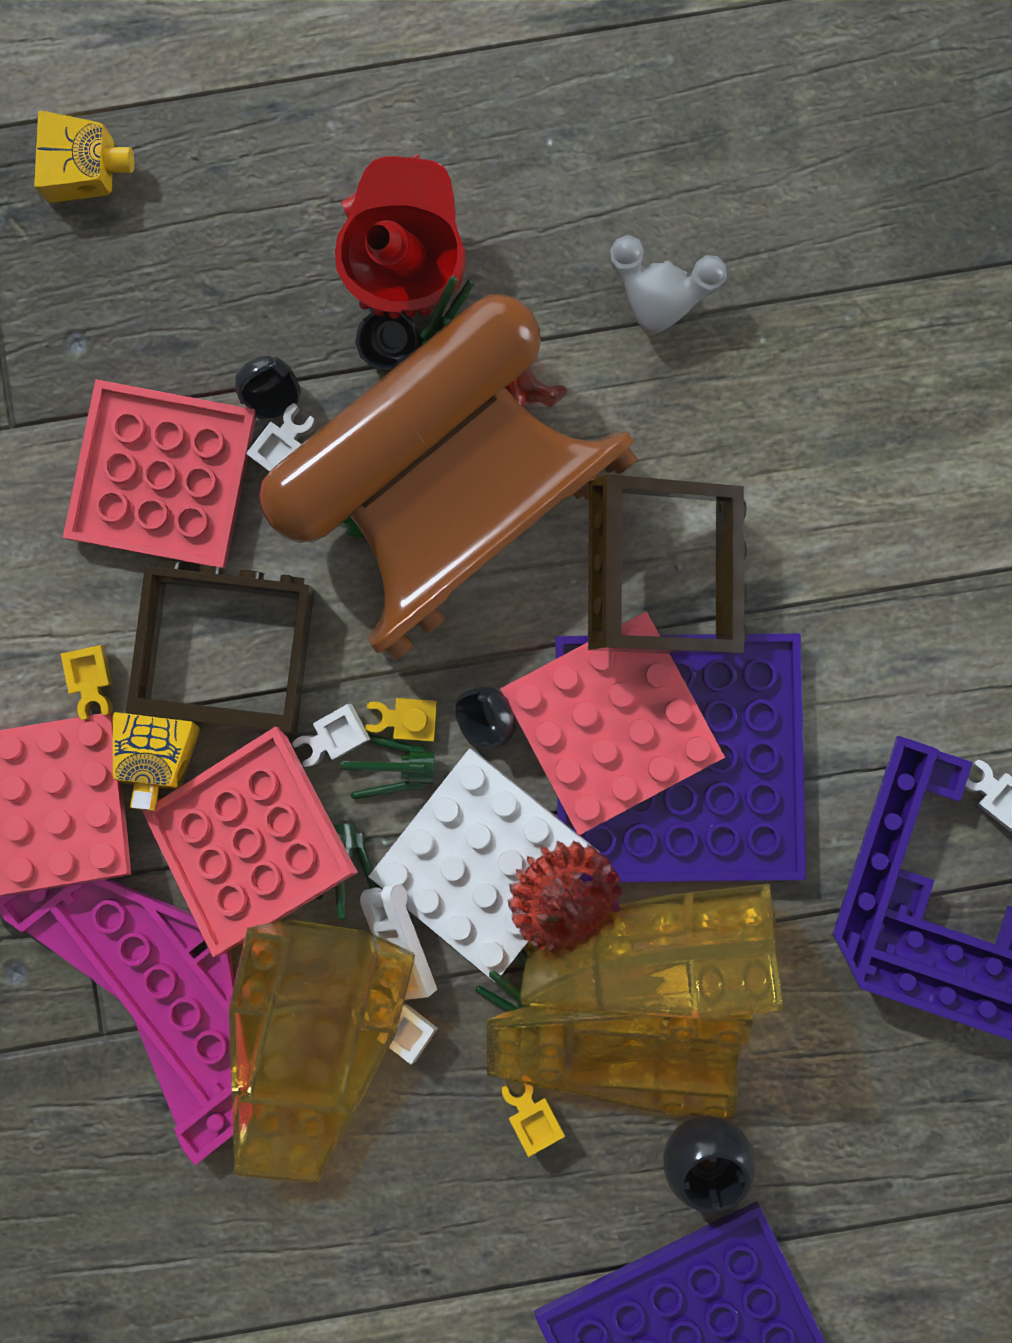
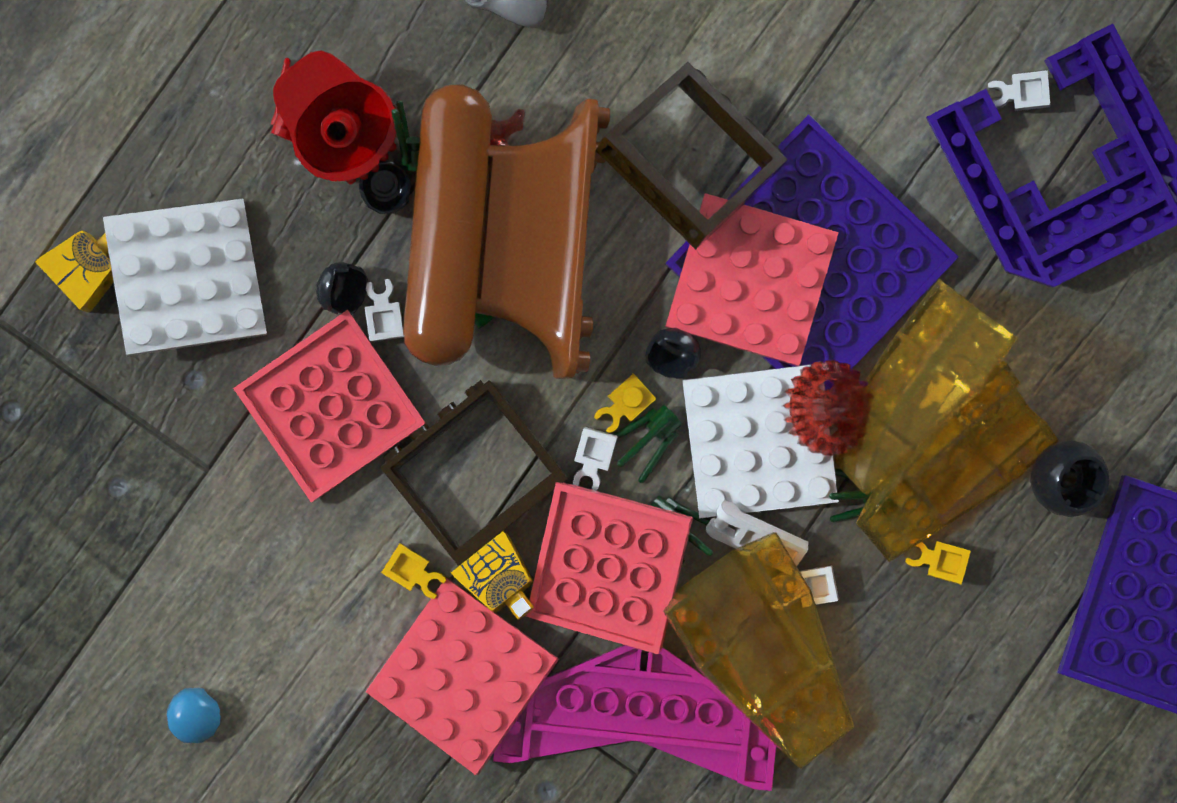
camera: 40 degrees left, 0 degrees up
(148, 246) = (184, 276): none -> white plate

